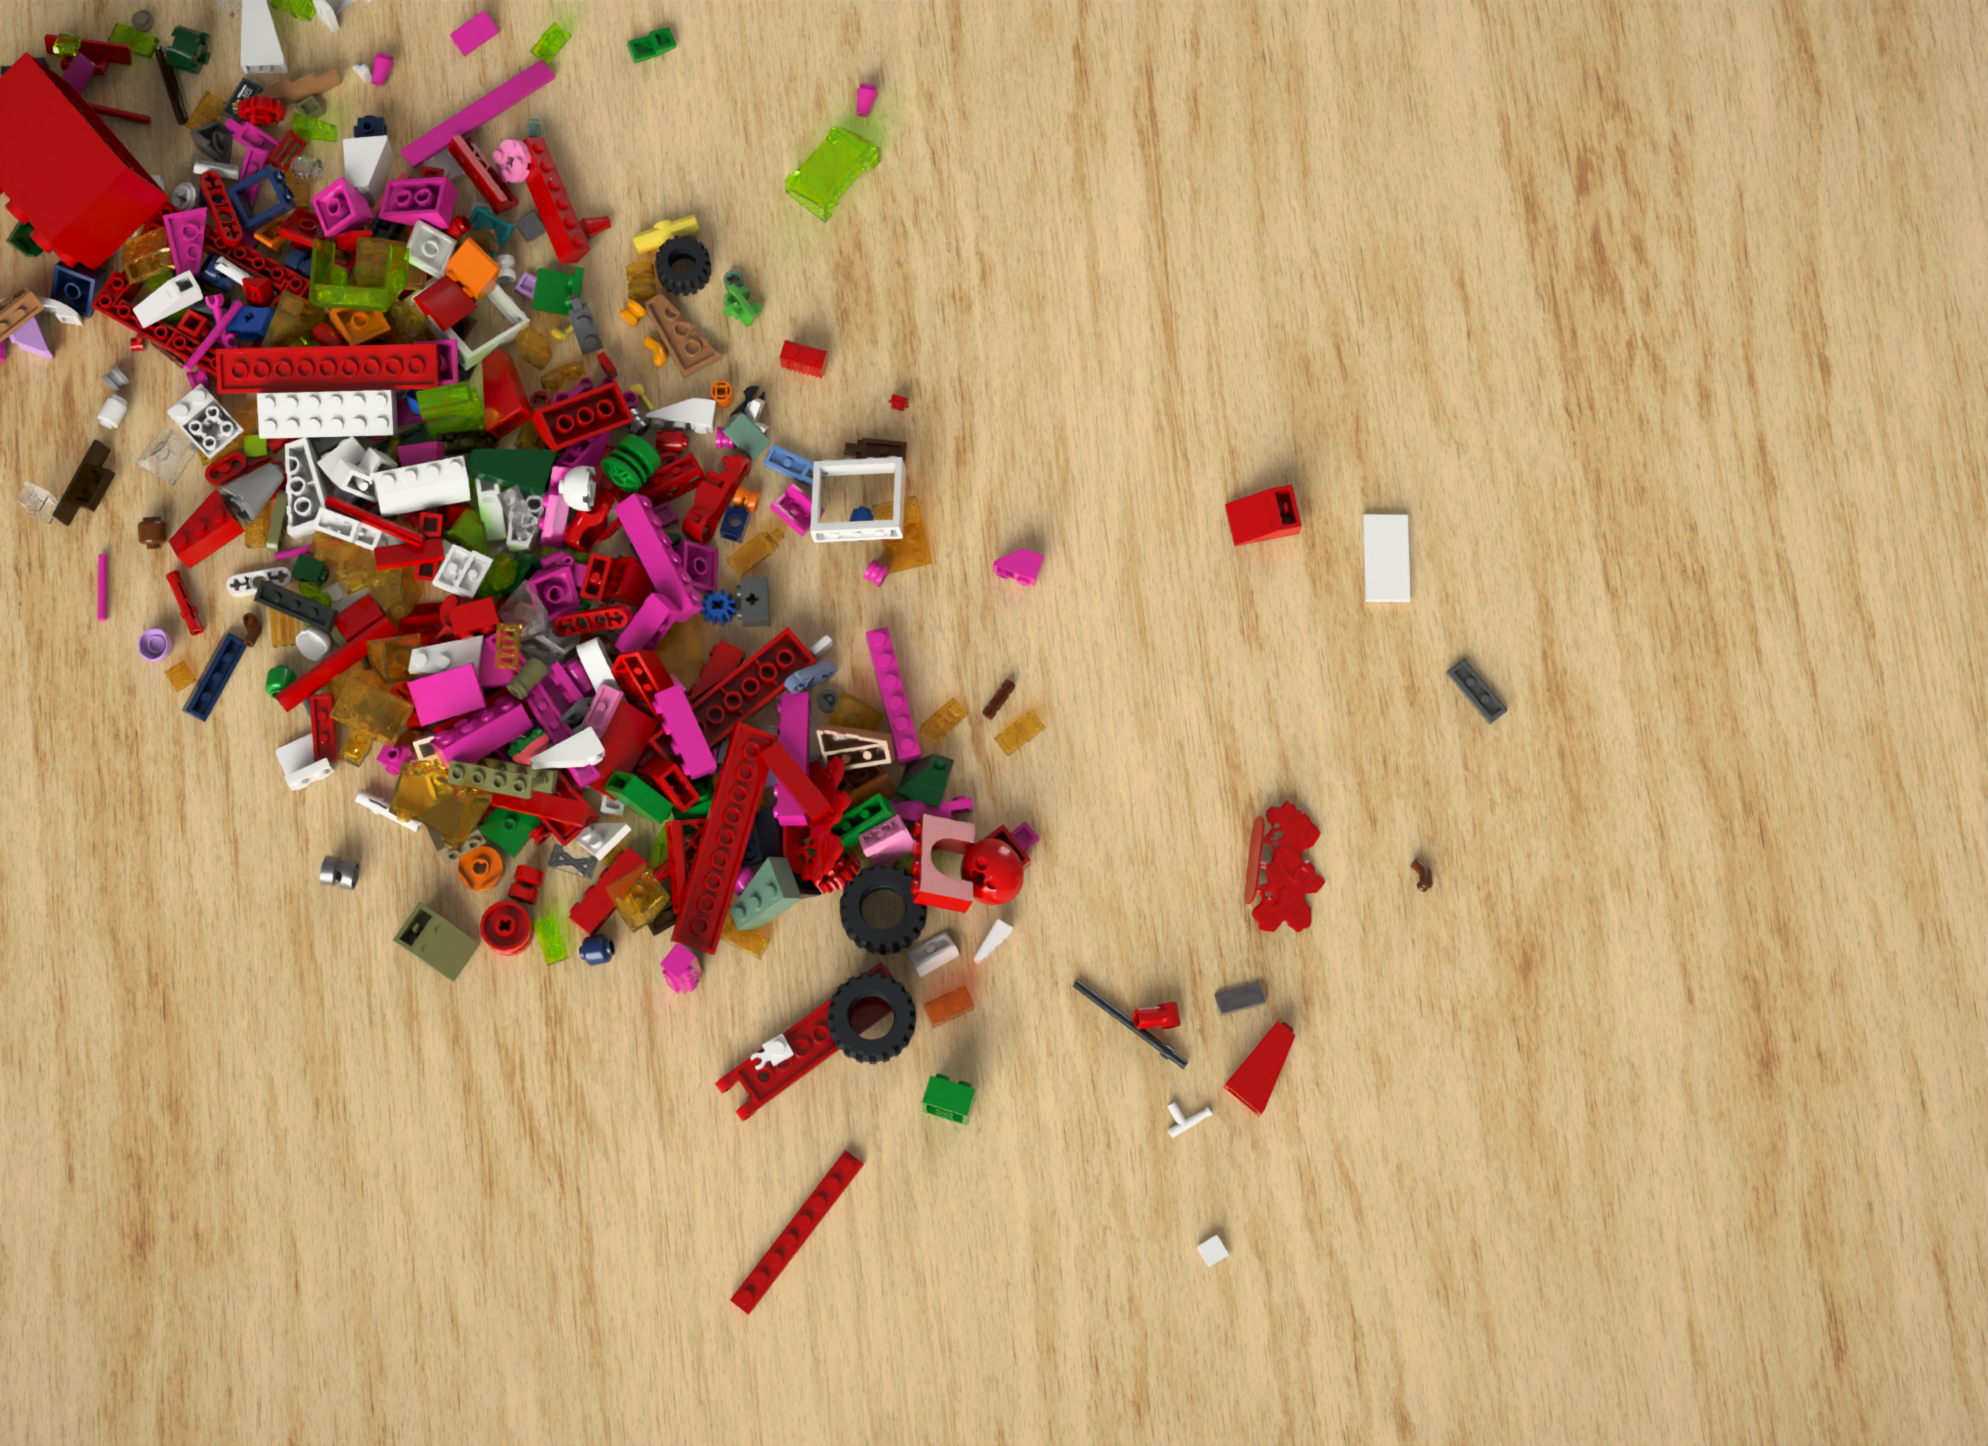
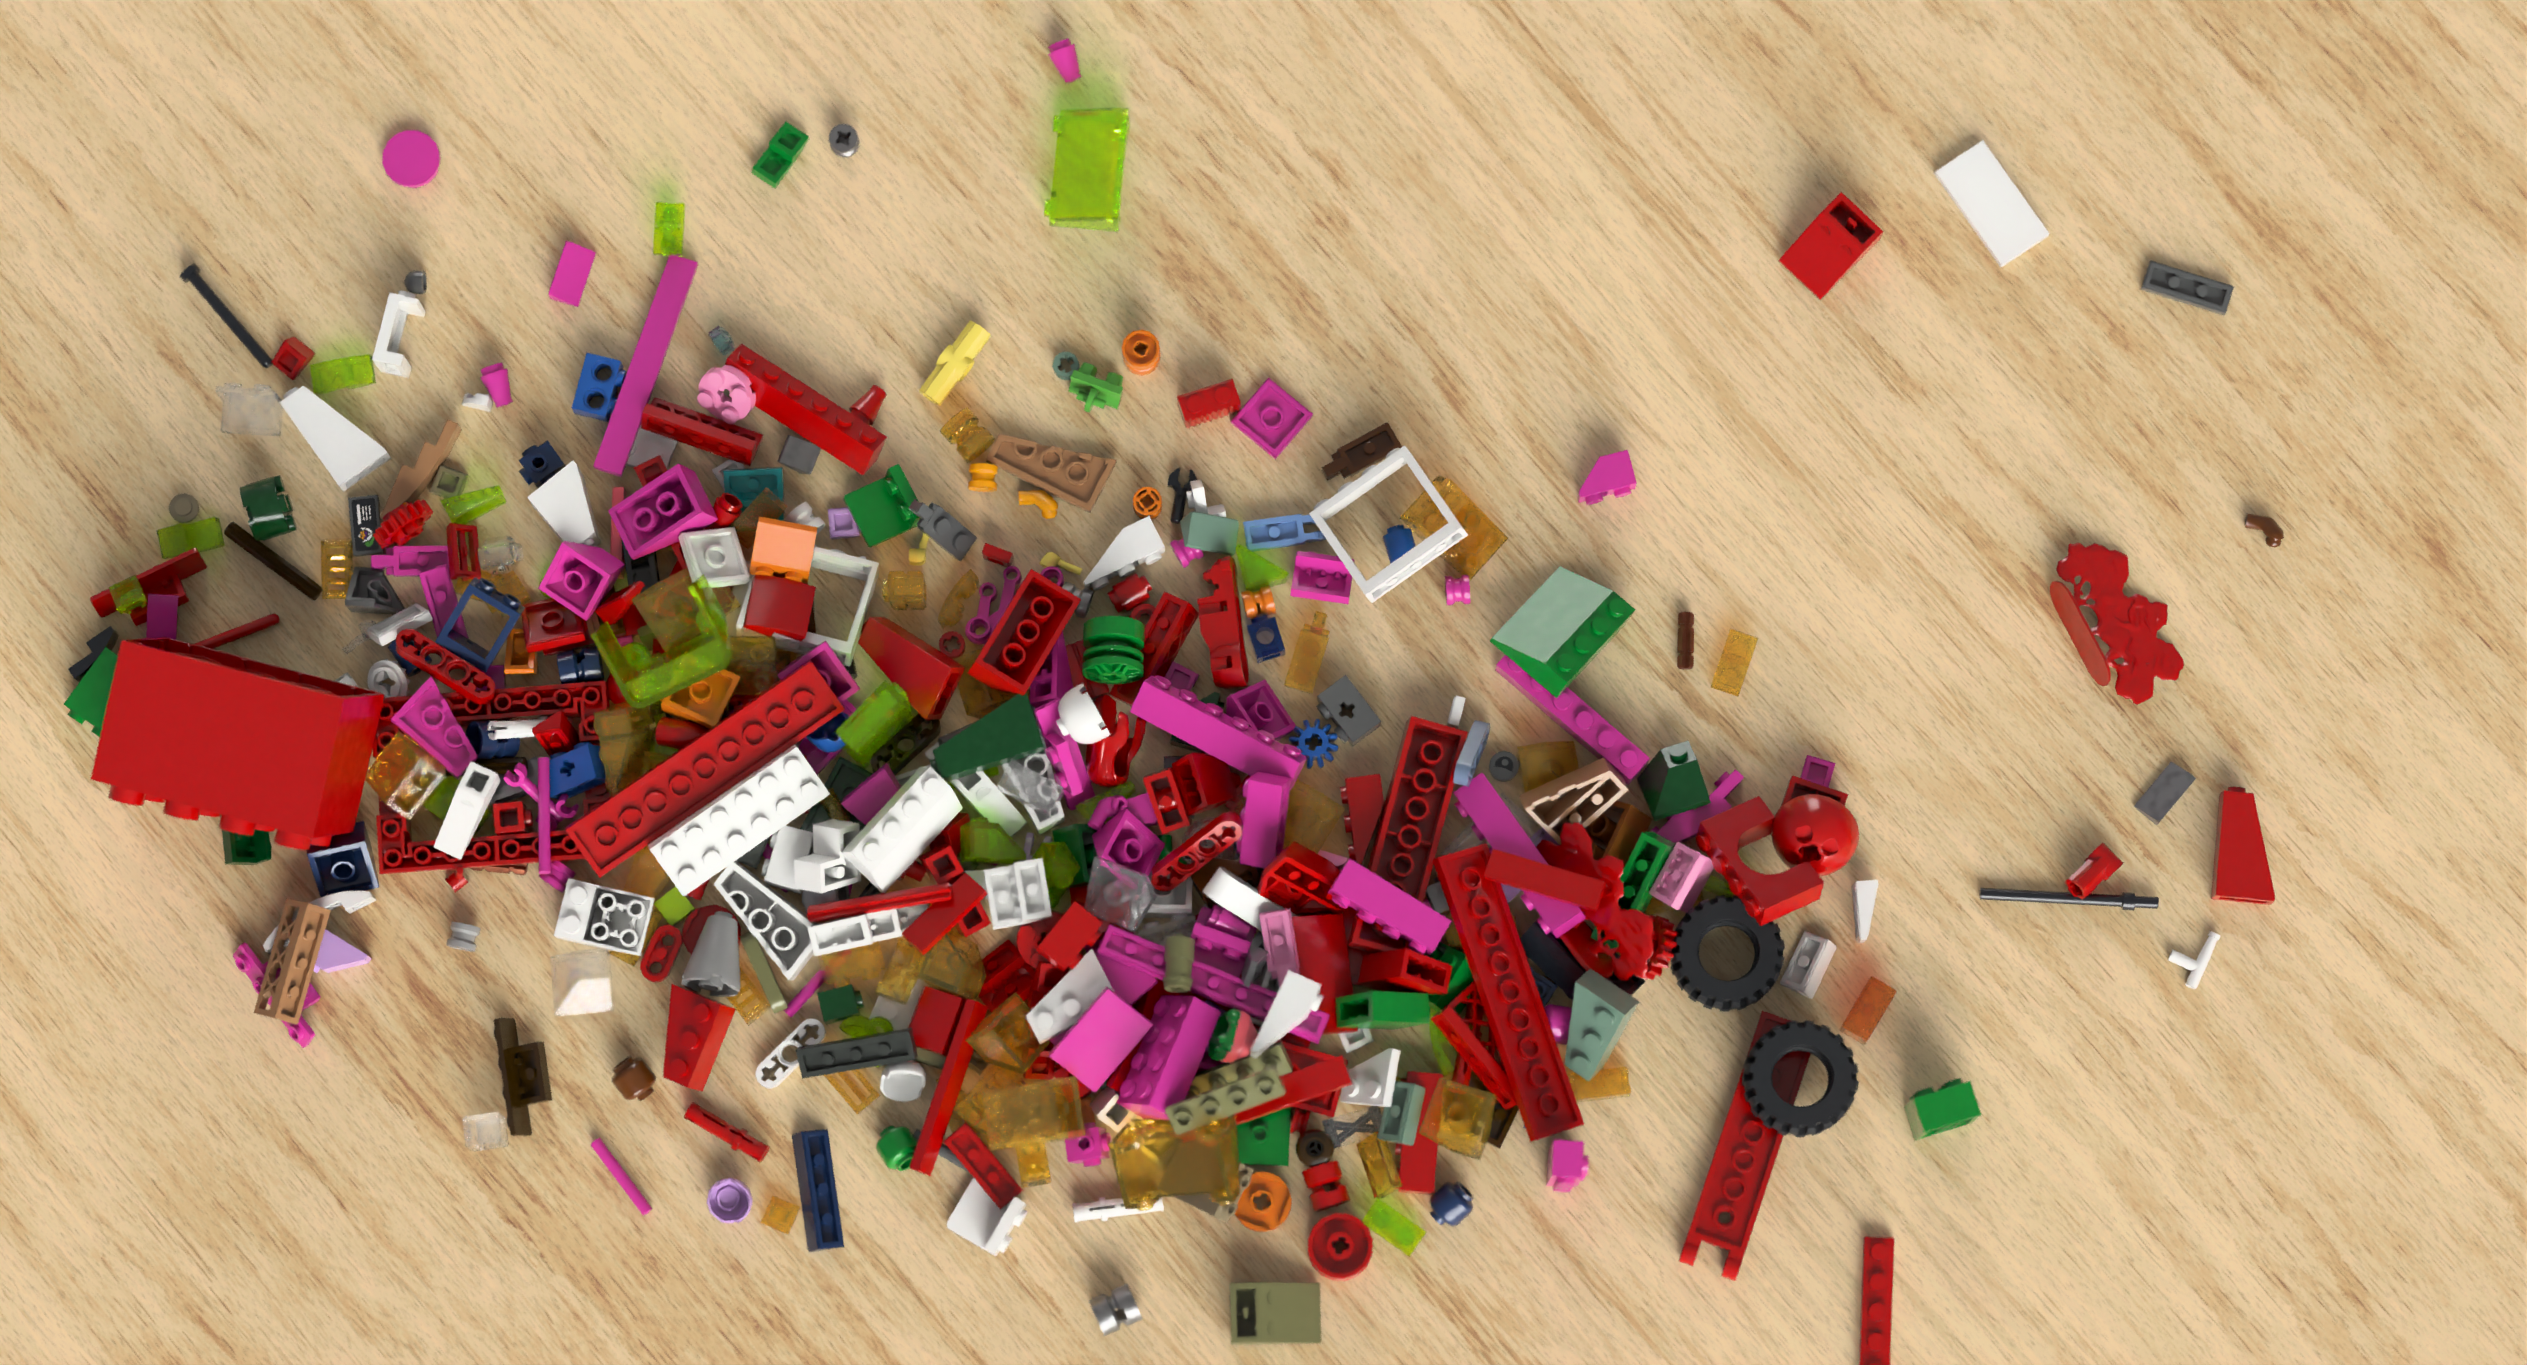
camera: 30 degrees left, 5 degrees up
(112, 412) = (488, 975): white brick -> none
(253, 628) = (822, 1109): reddish brown arm -> none
(435, 105) = (590, 387): none -> blue brick
(501, 627) = (1120, 919): clear yellow slope -> none
(530, 851) = (1322, 1156): none -> dark brown head
(568, 893) = (1379, 1166): none -> clear yellow plate
(605, 871) = (1401, 1119): none -> sand green slope
(678, 250) = (994, 363): black tyre -> none
(695, 66) = (847, 146): none -> flat silver wheel
(759, 479) = (1258, 571): none -> clear neon green slope
(775, 1051) = (1720, 1183): white plate -> none
(783, 300) = (1141, 352): none -> orange wheel
(837, 394) = (1271, 418): none -> dark pink tile
(898, 402) = (1346, 382): red plate -> none
(923, 638) = (1562, 628): none -> slope
(933, 731) = (1641, 723): clear yellow slope -> none
(1212, 1251) = (2319, 1080): white tile -> none

